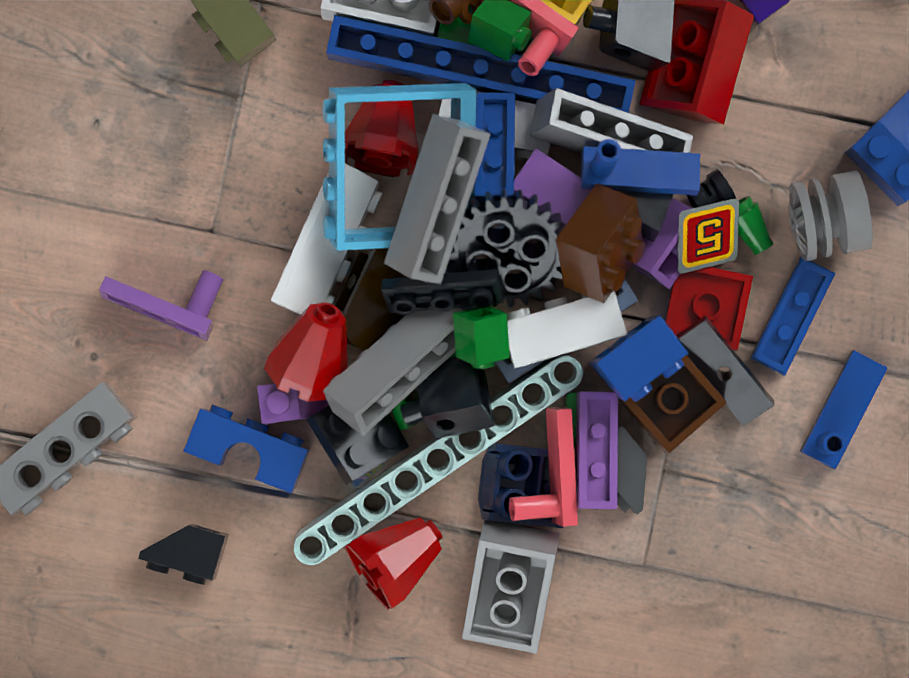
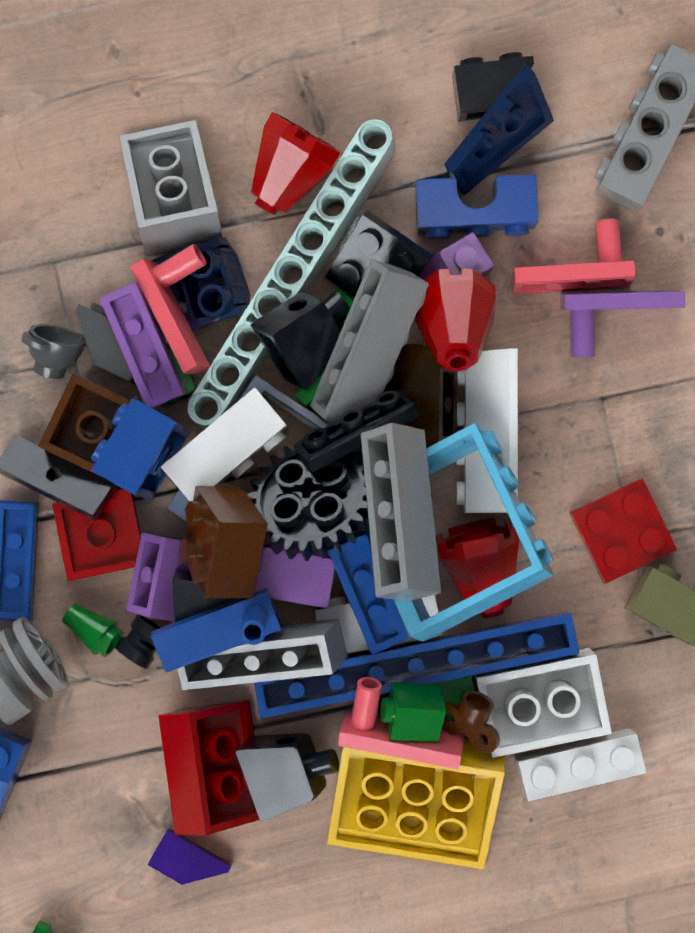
camera: 150 degrees right, 0 degrees up
(157, 337) = (607, 274): none -> coral piece
(197, 503) = (502, 131): none -> dark blue wing
(246, 107) = (623, 531): none -> red plate
(481, 336) = (300, 403): green brick -> none
(676, 486) = (53, 349): none -> dark grey piece
(708, 235) = (126, 599): sticker -> none

